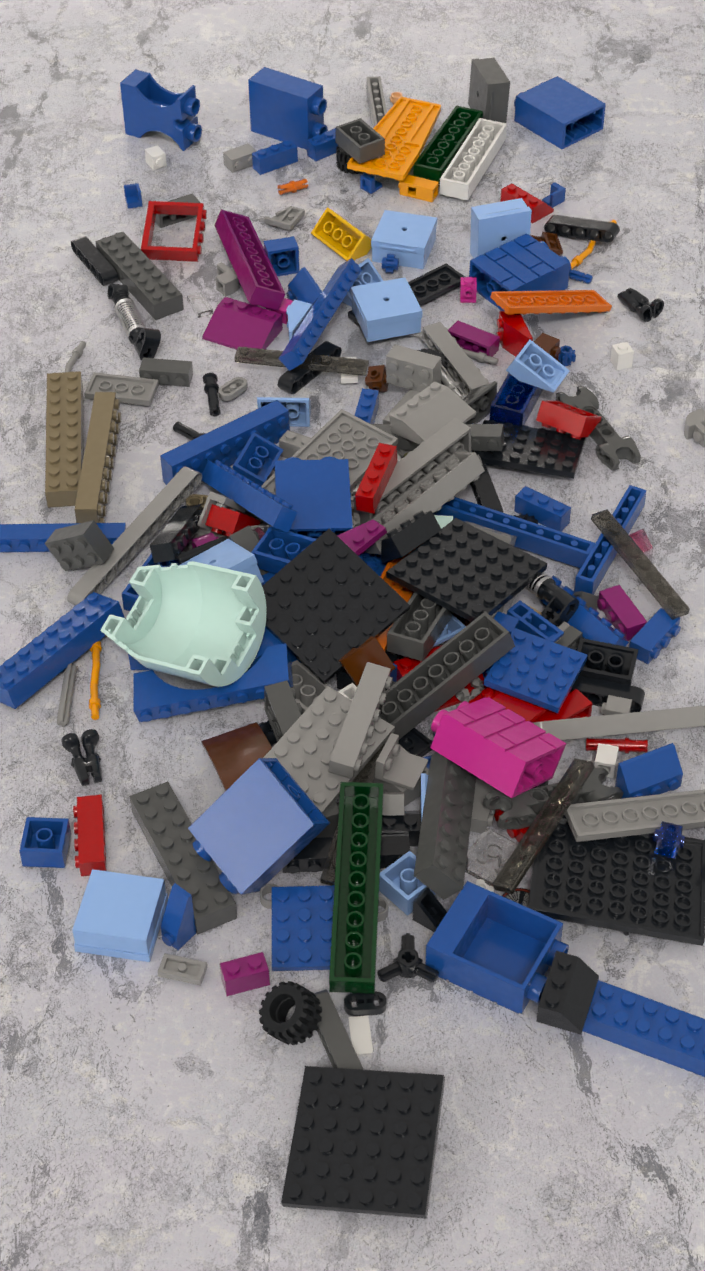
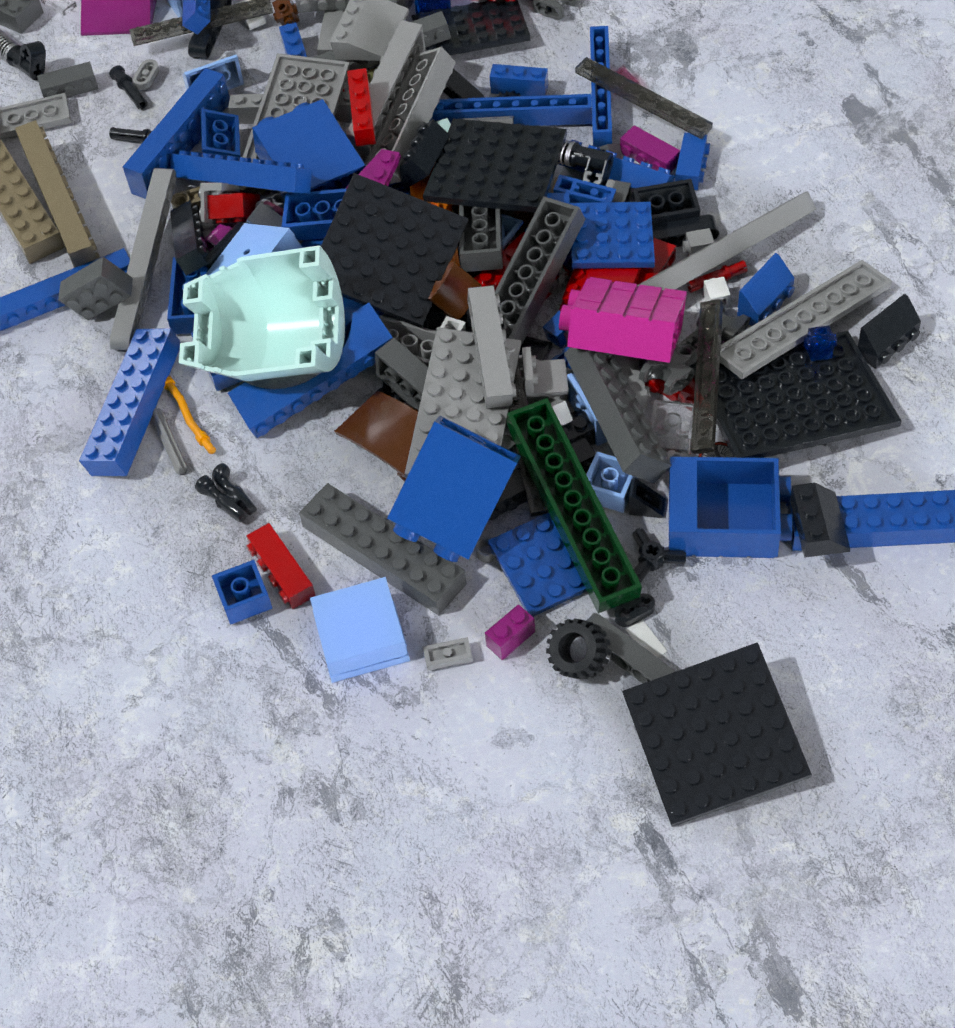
camera: 20 degrees left, 10 degrees up
(178, 918) = (420, 607): blue slope -> none

